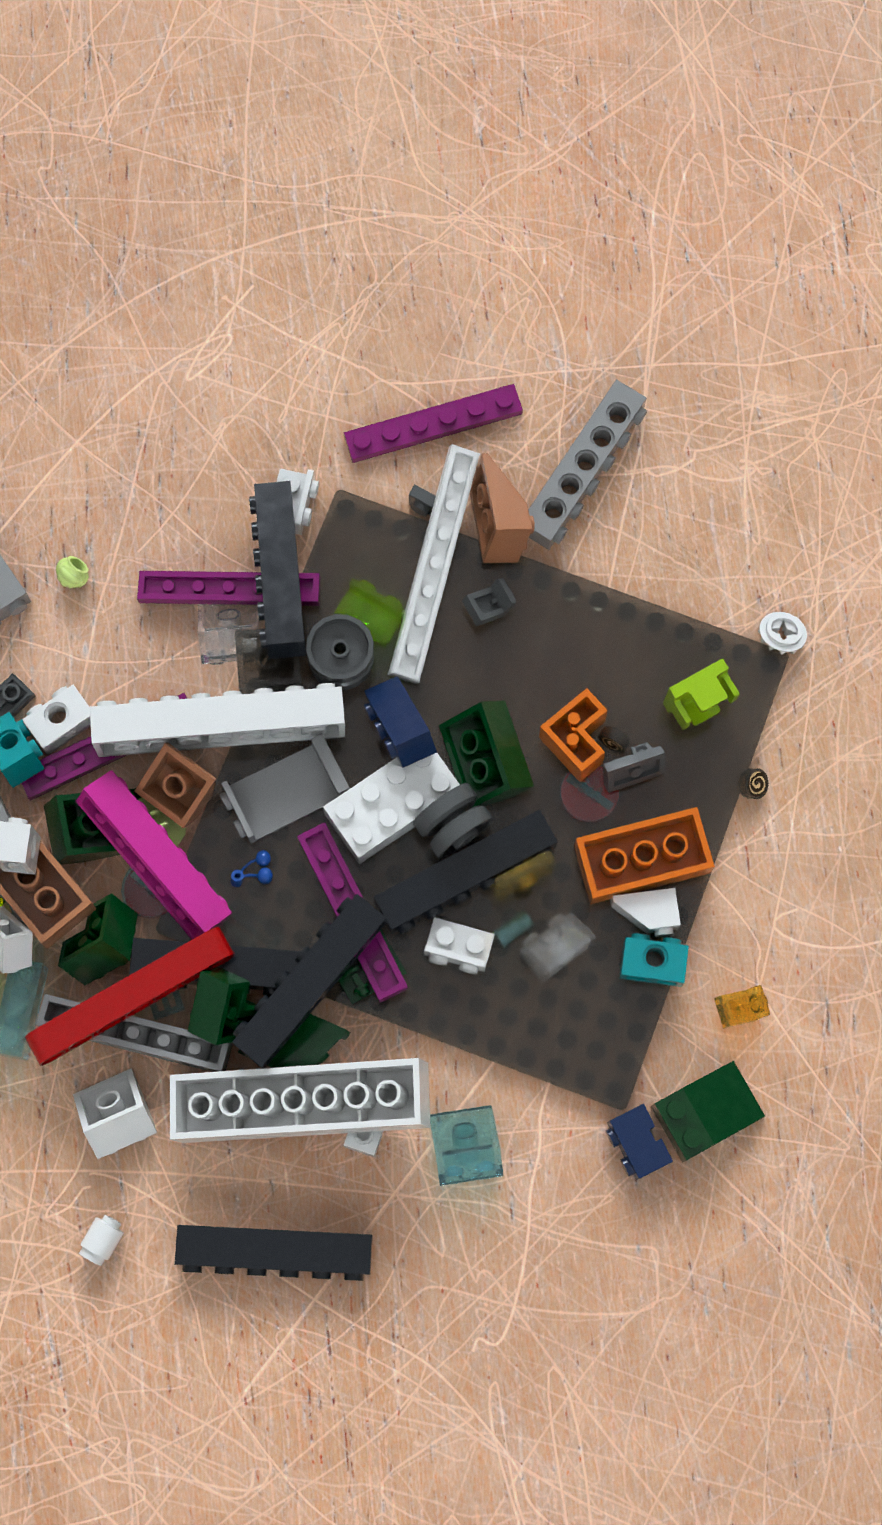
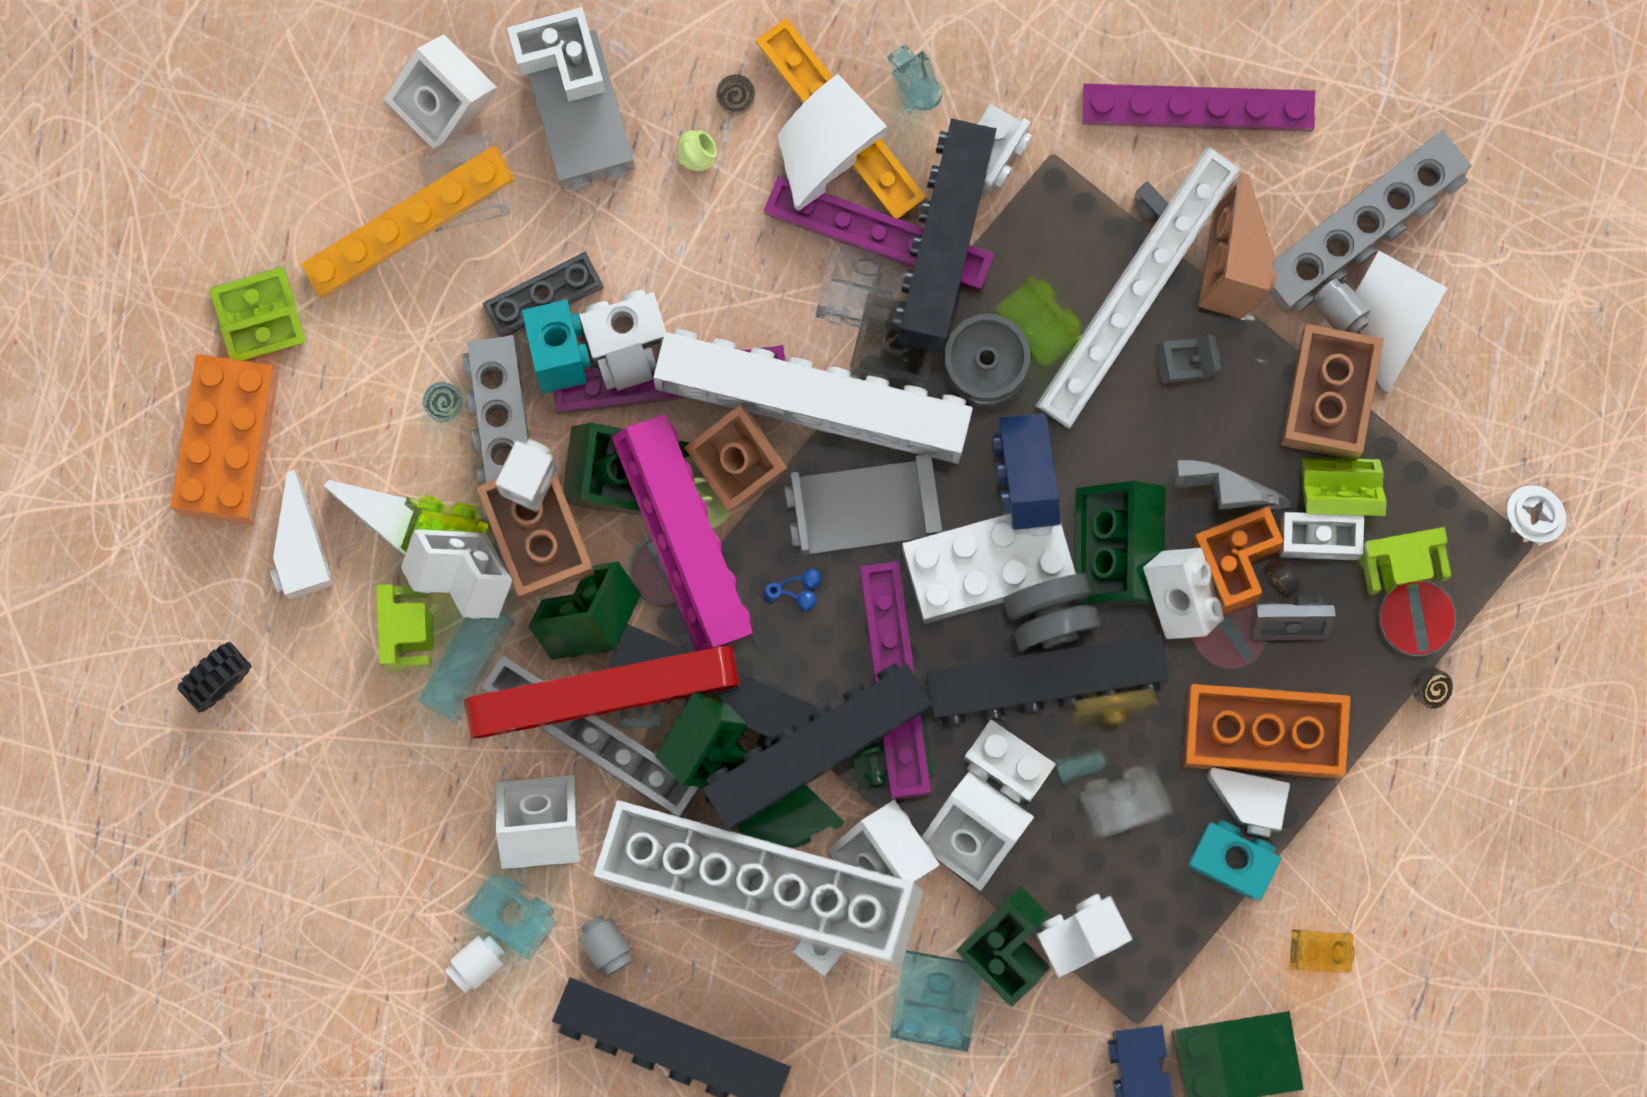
camera: 25 degrees right, 5 degrees up
(71, 746) = (627, 367): none -> light grey brick
(88, 523) = (735, 94): none -> clear smoke tile
(98, 1186) = (488, 910): none -> clear light blue brick
(166, 531) = (826, 138): none -> white slope
(172, 515) = (805, 75): none -> light orange plate
(197, 1191) = (605, 945): none -> light grey brick
(217, 467) = (914, 79): none -> clear light blue hips
(387, 1038) = (886, 845): none -> white slope
(451, 1004) = (975, 830): none -> white slope
(500, 1088) = (1000, 951): none -> dark green brick
(548, 789) = (1183, 593): none -> white brick
(551, 684) = (1228, 487): none -> light grey slope
(562, 1056) = (1084, 937): none -> white brick
(589, 529) = (1342, 307): none -> light grey brick
(603, 591) = (1332, 392): none -> nougat brick
(625, 525) = (1400, 310): none -> white slope
(634, 697) = (1322, 536): none -> white brick
(636, 657) = (1343, 486): none -> lime slope
(724, 735) = (1417, 618): none -> red piece

